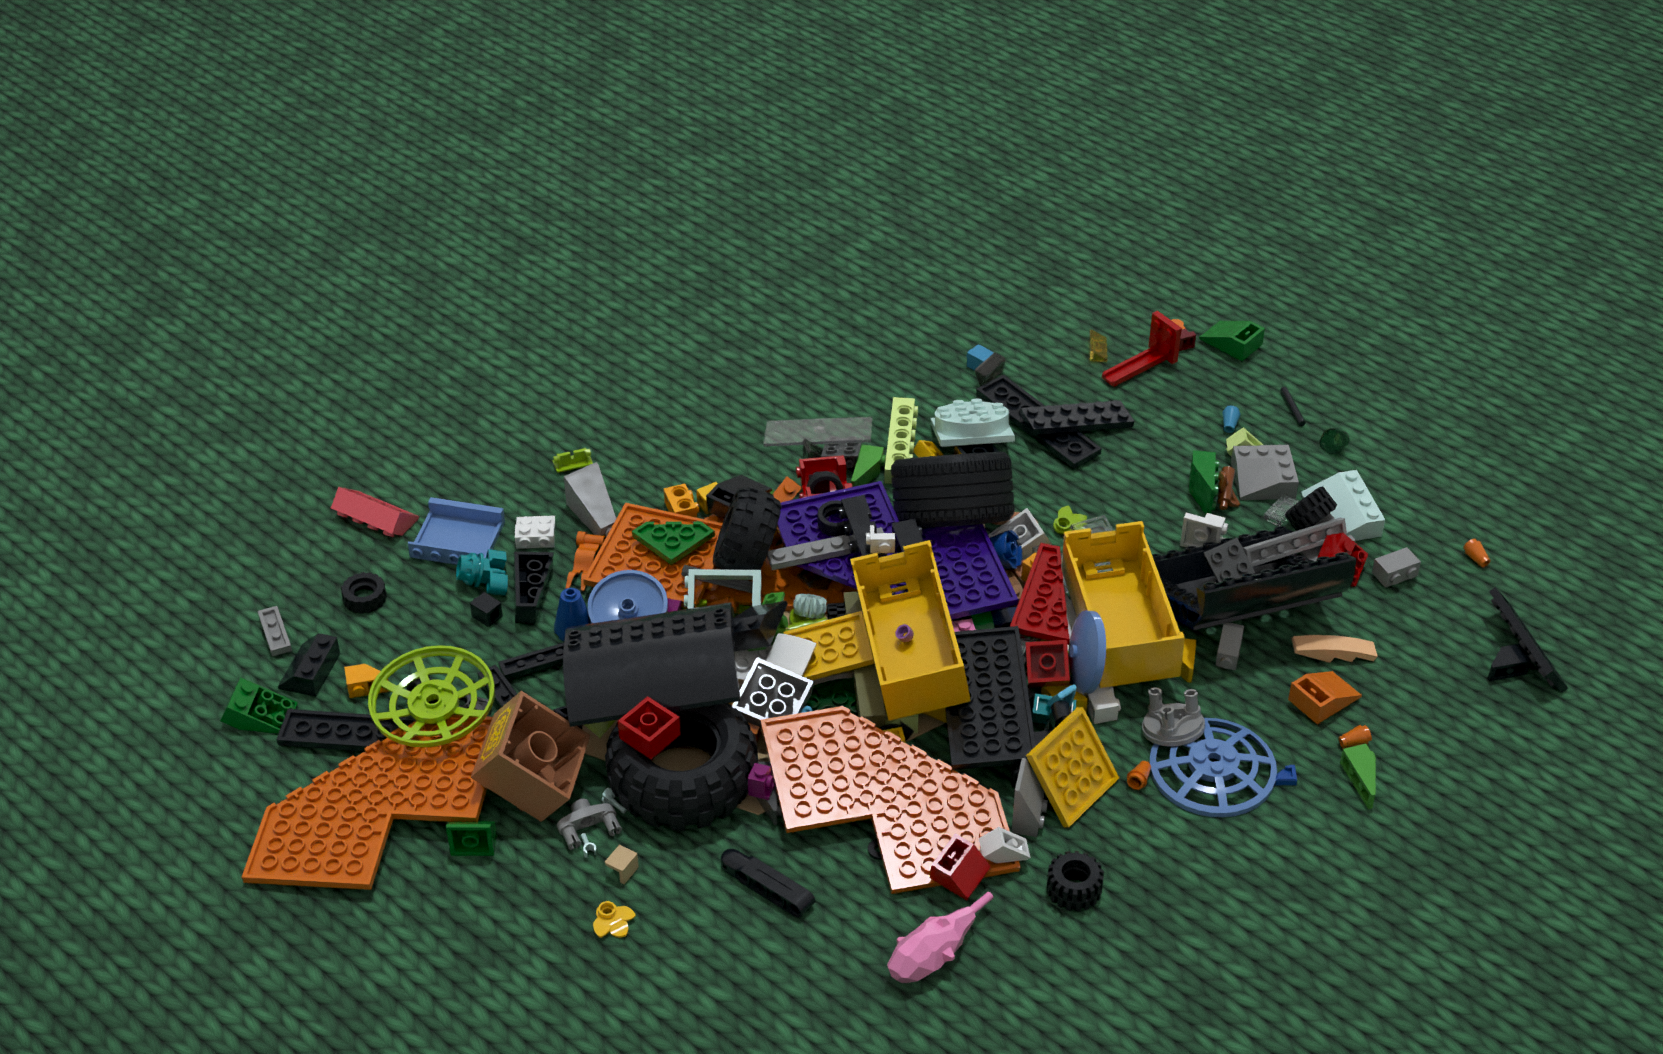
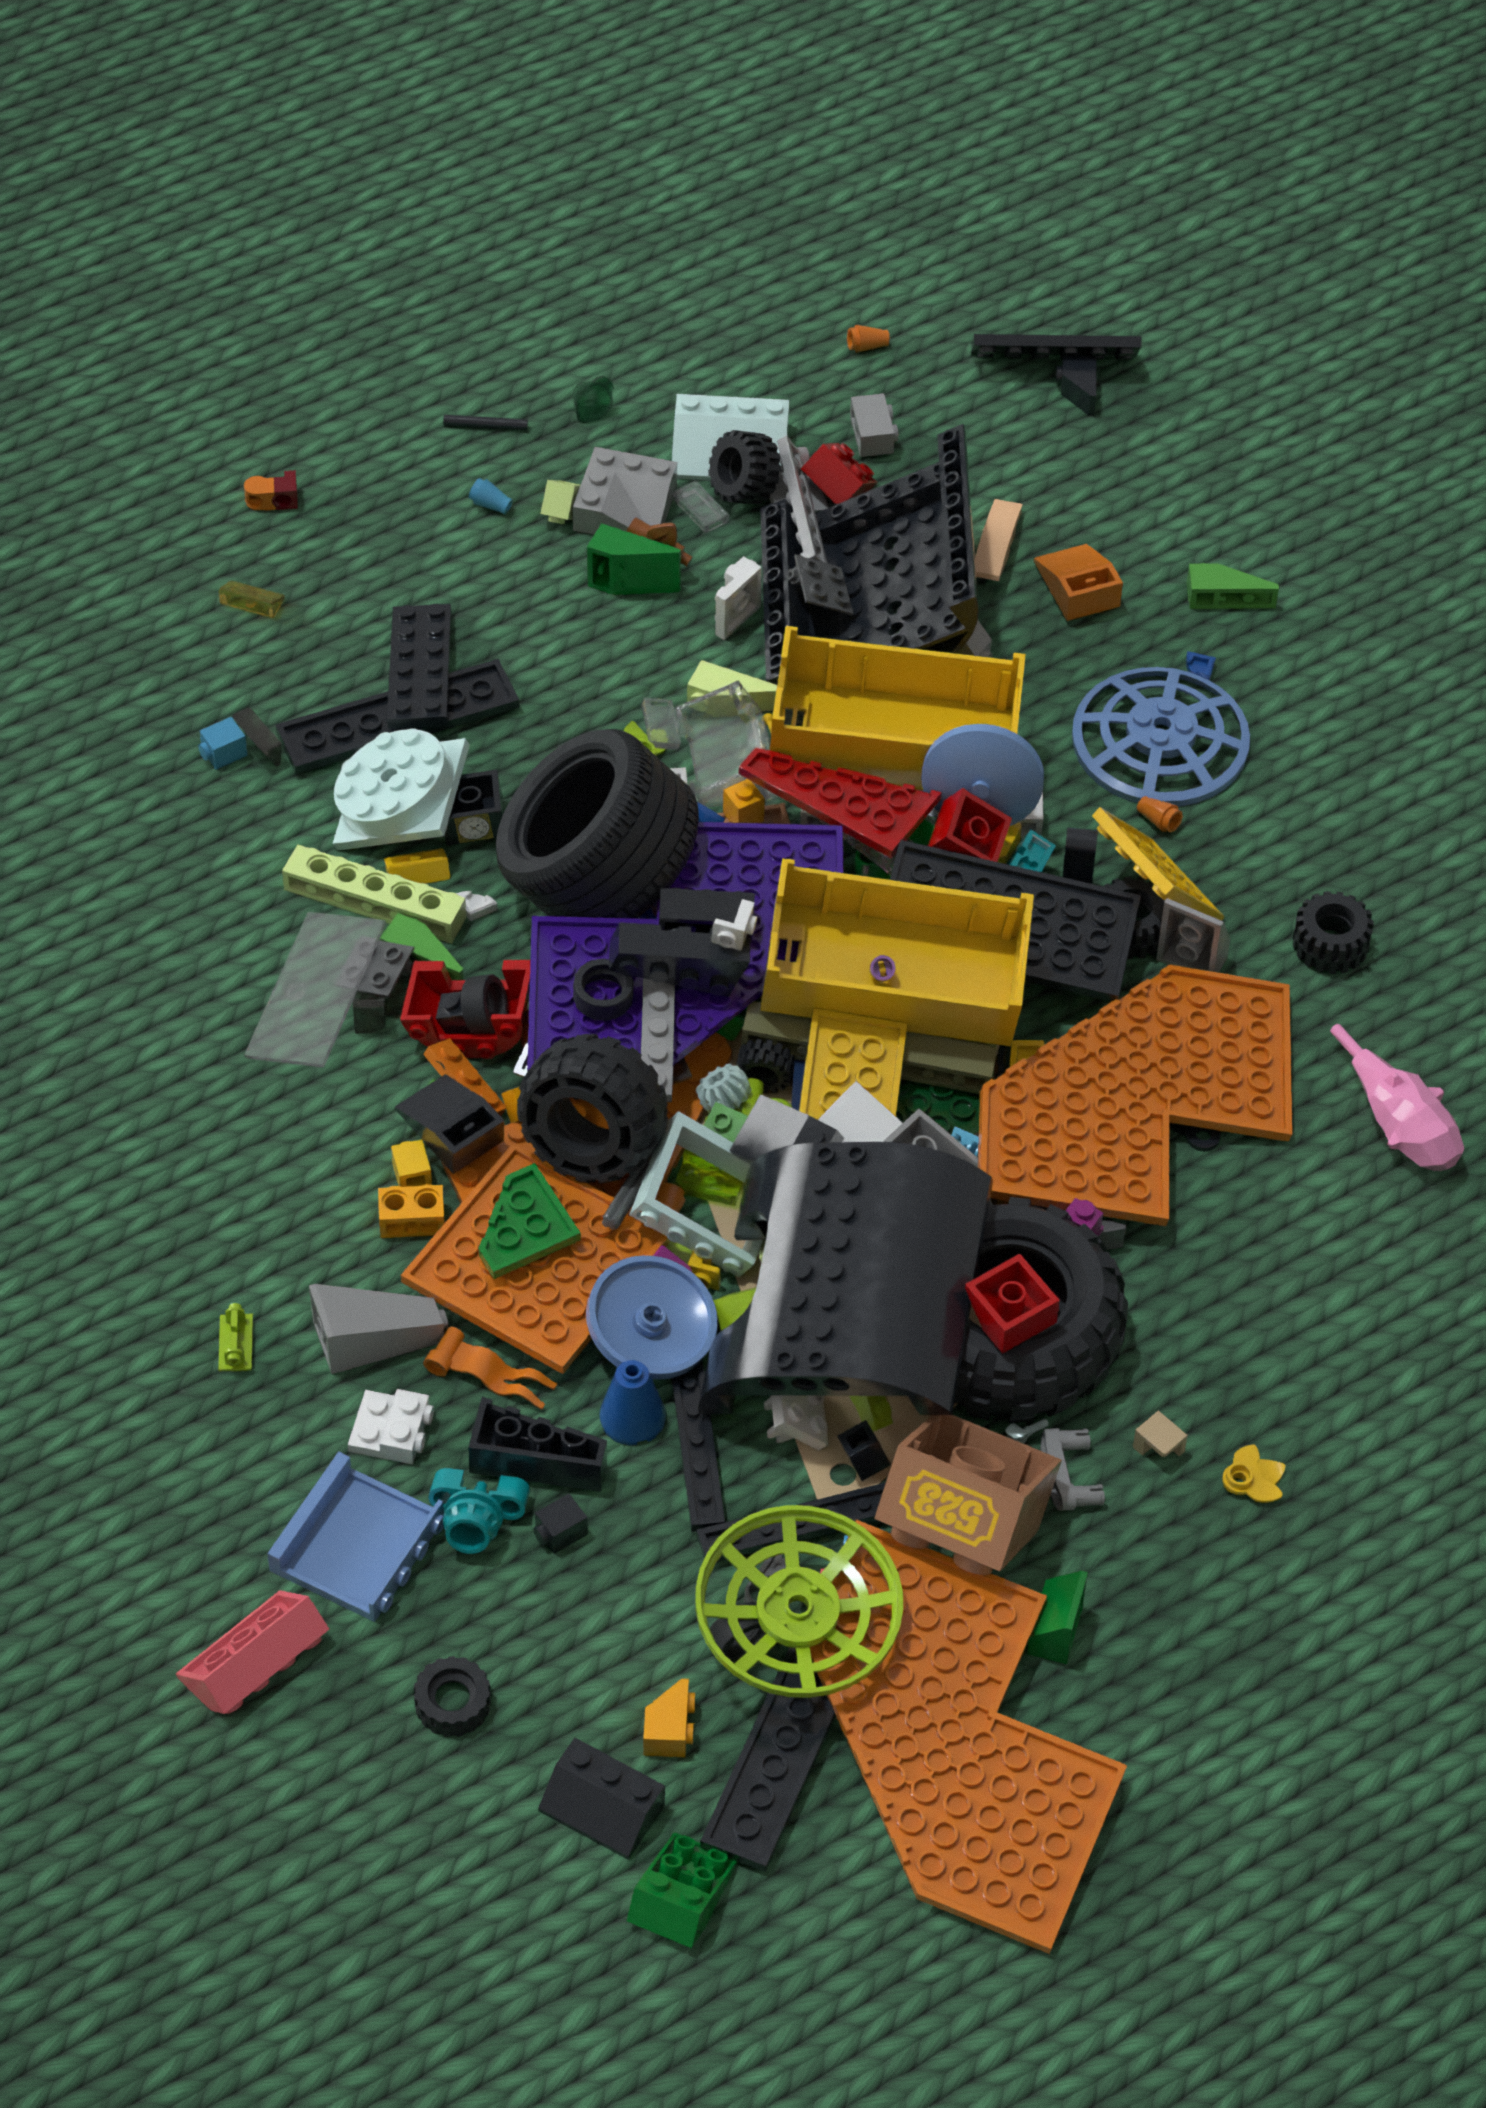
camera: 75 degrees left, 10 degrees up
(274, 631) = (498, 1843): light grey plate -> none
(587, 845) = (1108, 1481): light aqua hand -> none
(767, 882) = (1237, 1274): black piece -> none
(959, 867) = (1287, 1045): red slope -> none
(1003, 846) = (1268, 987): white slope -> none
(1066, 695) = (1040, 837): medium azure slope -> none
(1163, 344) = (299, 509): red bracket -> none
(1173, 722) = (1084, 746): light grey piece -> none
(1235, 337) = (312, 431): green slope -> none
(1356, 736) = (1160, 574): orange cone -> none

